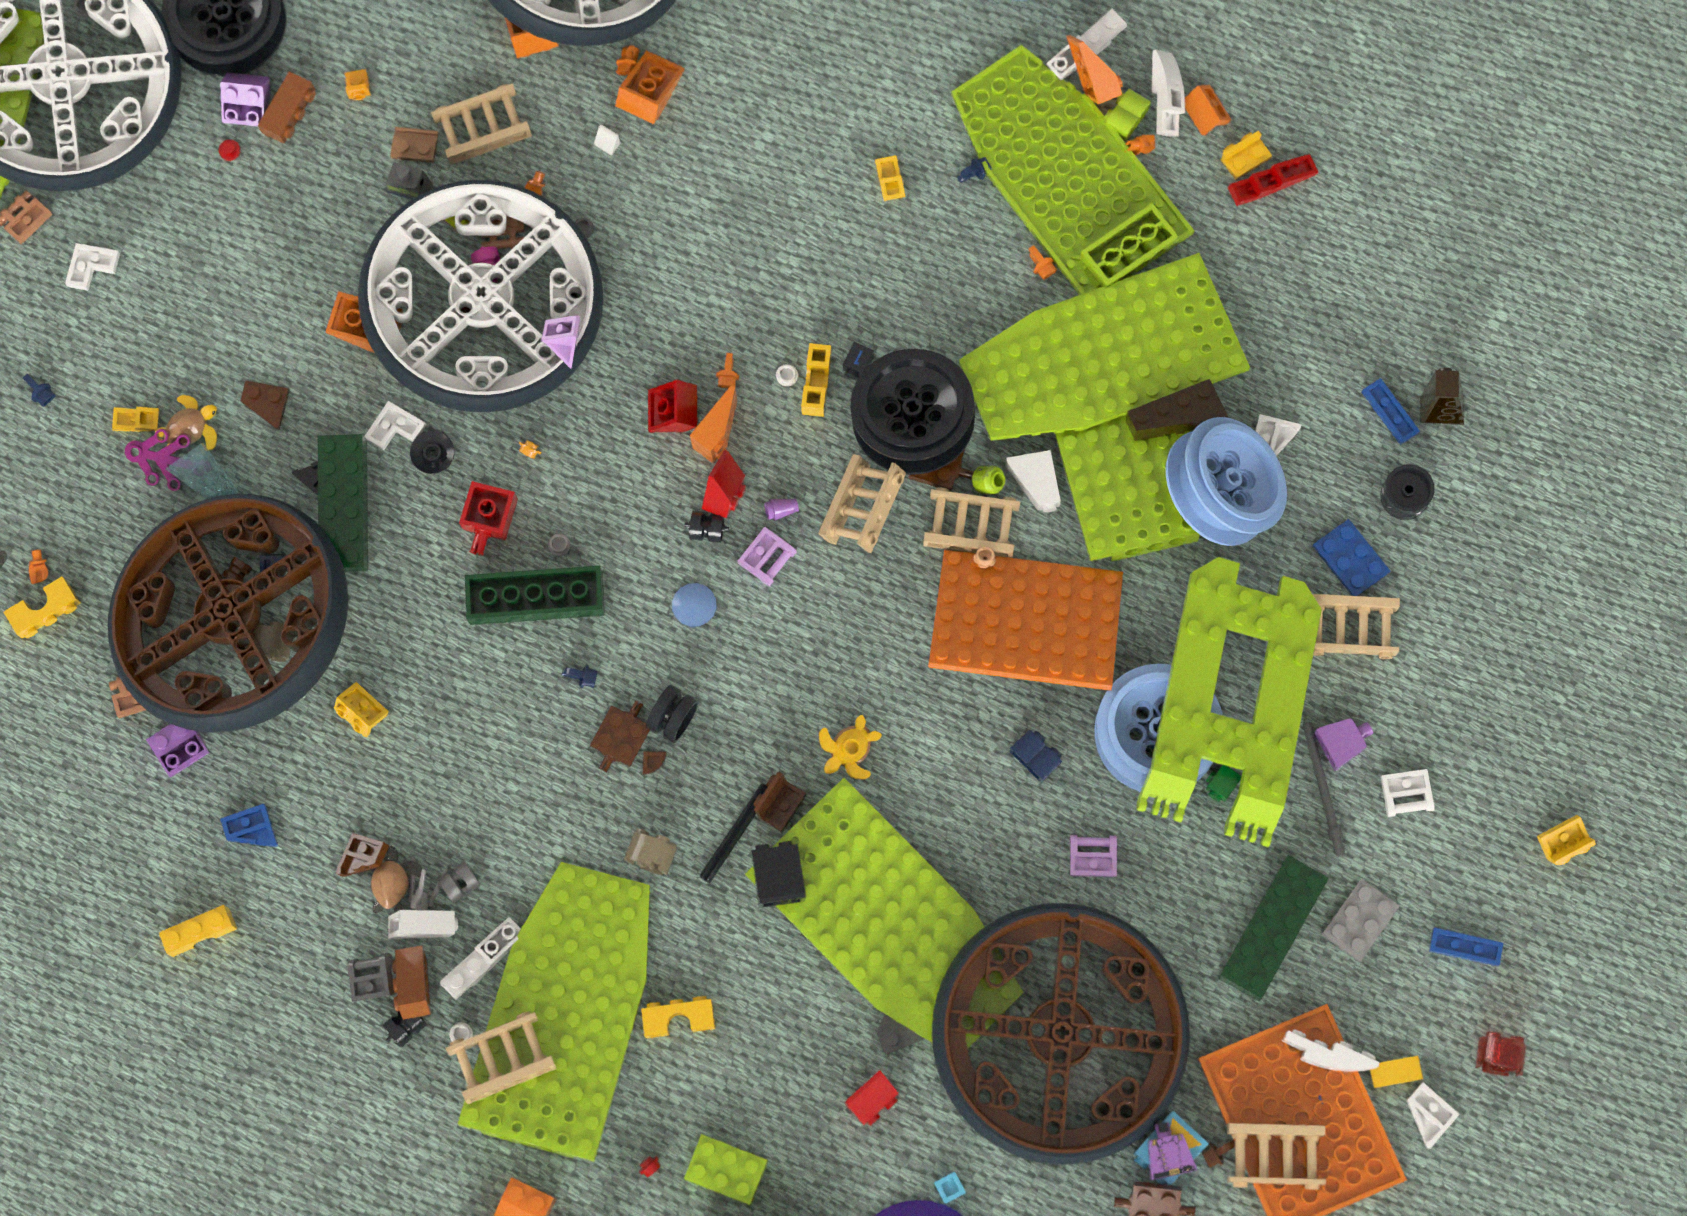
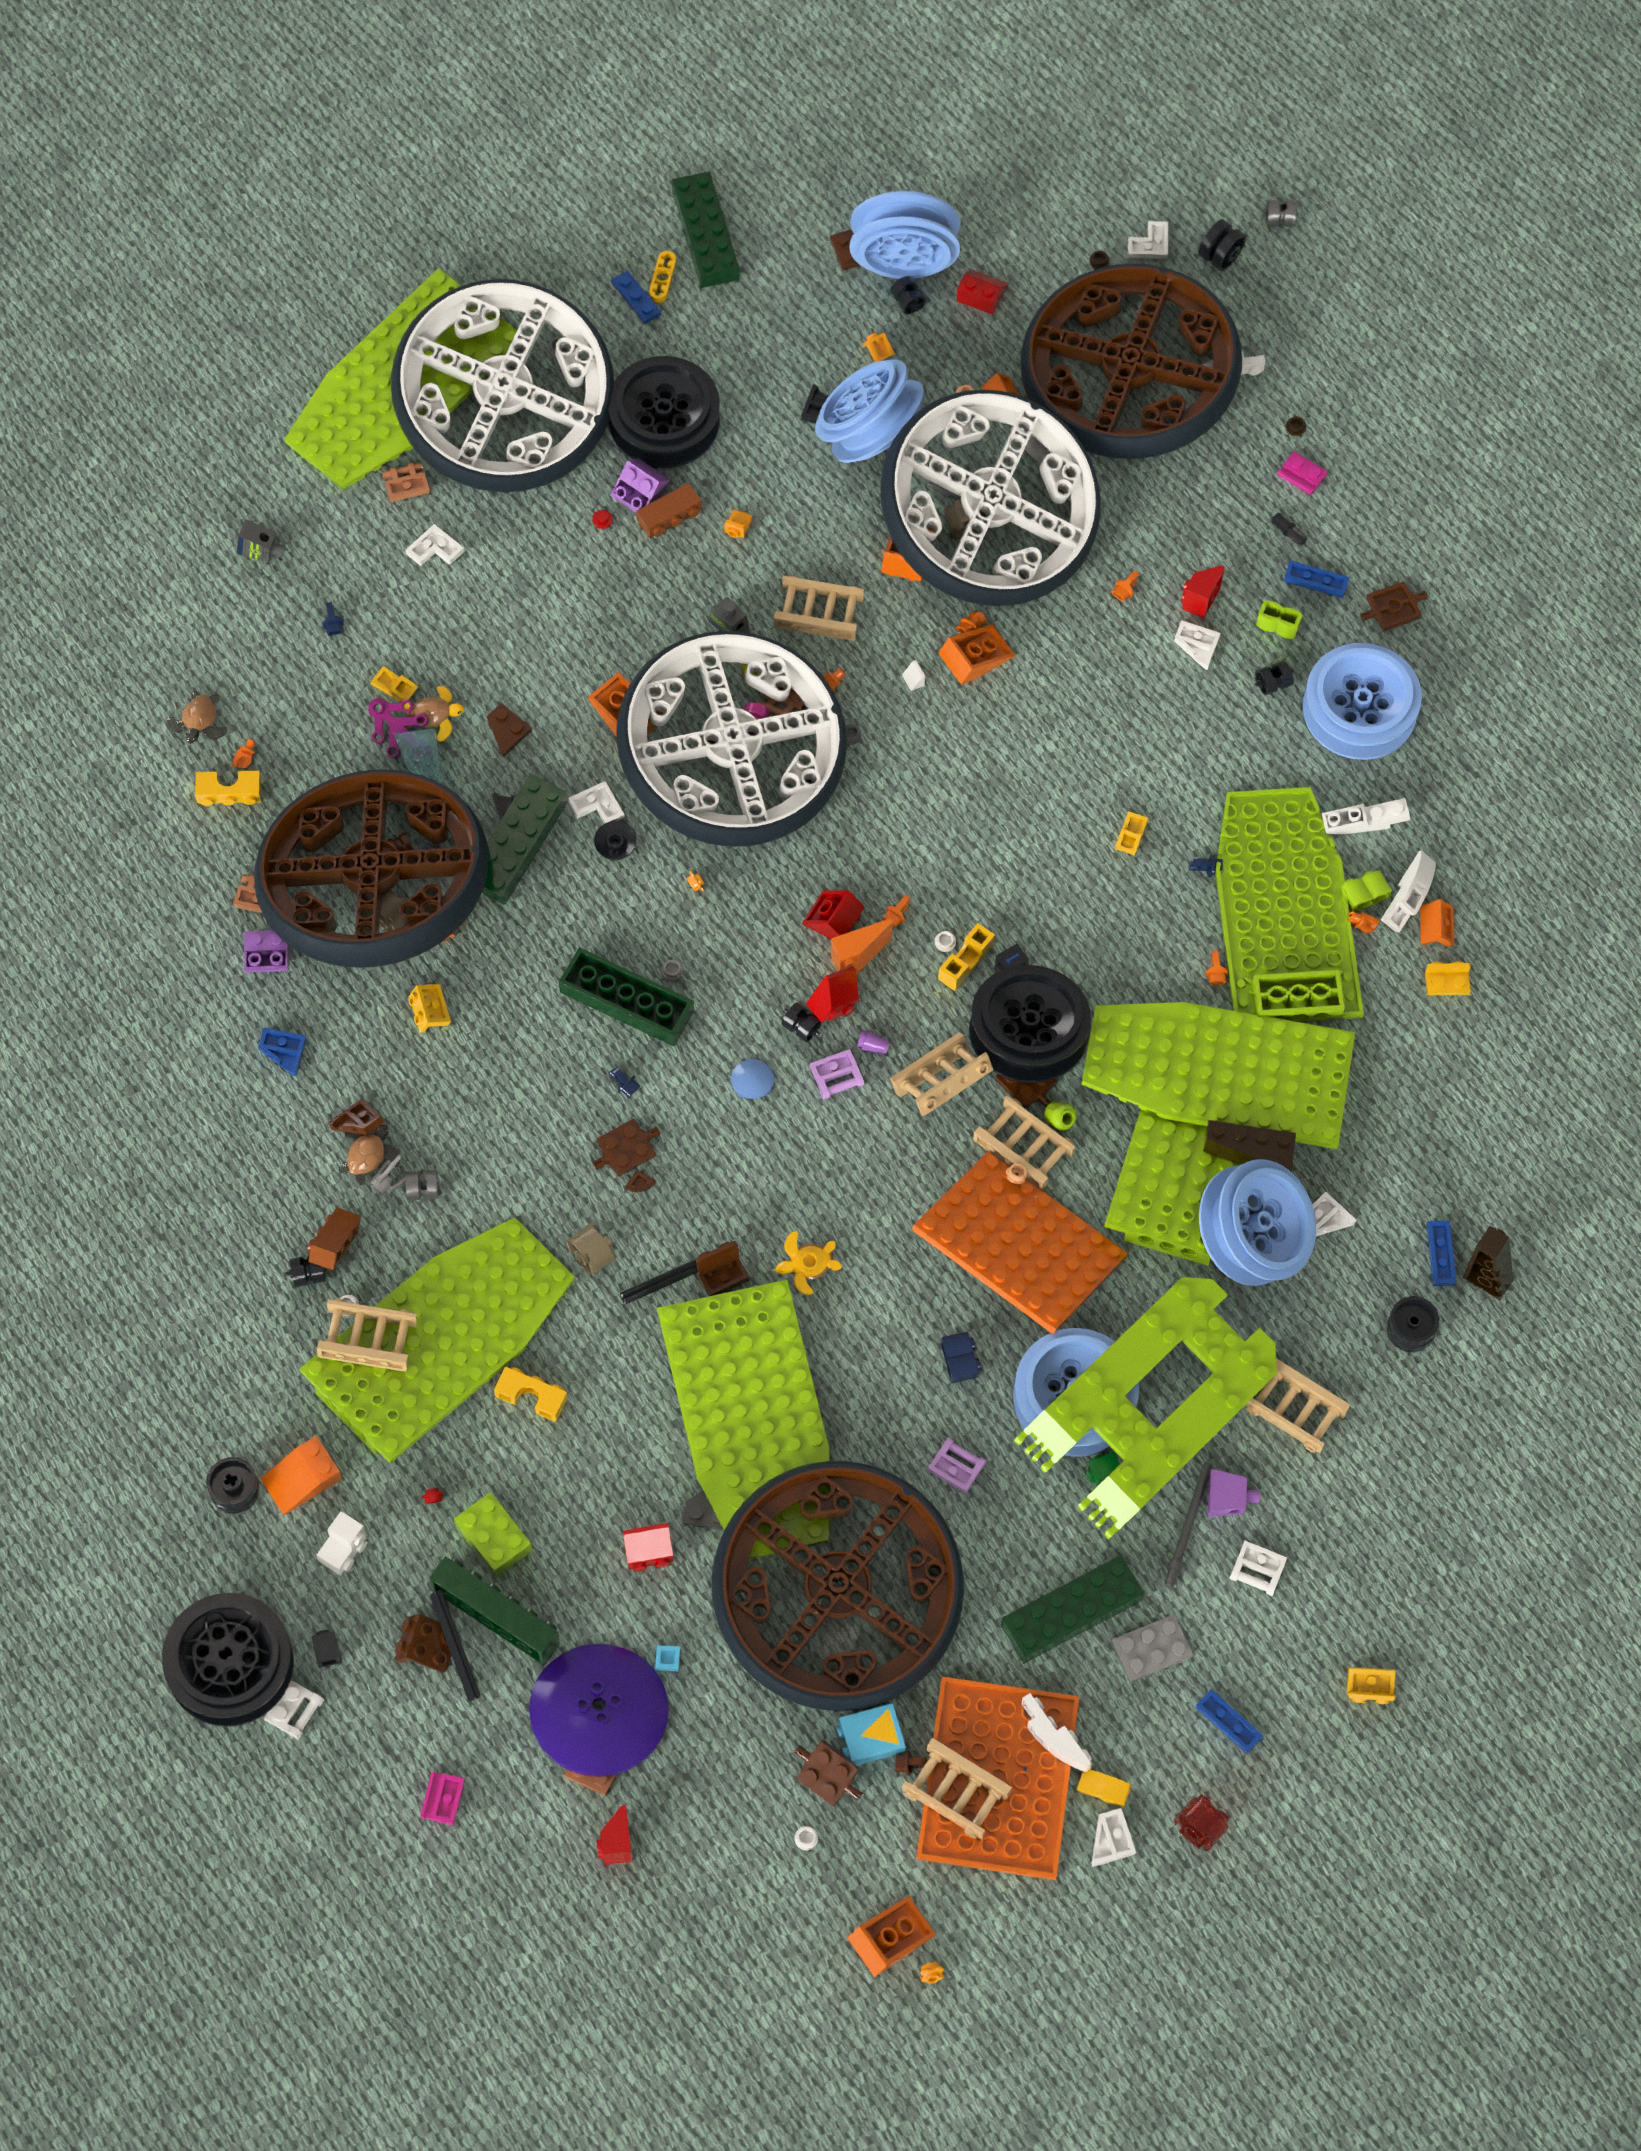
camera: 25 degrees right, 10 degrees down
(204, 926) = (206, 1104): yellow arch -> none
(371, 985) = (302, 1224): dark grey plate -> none
(414, 144) = (754, 595): medium nougat plate -> none
(421, 924) = (371, 1200): white slope -> none
(482, 959) = (401, 1257): white slope -> none
(495, 523) = (628, 912): red brick -> none
(562, 337) = (776, 804): lavender slope -> none
(672, 714) = (678, 1150): black wheel -> none
(778, 874) = (681, 1321): black slope -> none
(1036, 478) = (1102, 1137): white slope -> none
(1095, 76) = (1356, 846): orange slope -> none
(1168, 1154) = (865, 1733): medium lavender torso -> none
(1273, 179) = (1459, 1011): red slope -> none
(1351, 558) = (1331, 1353): blue plate -> none

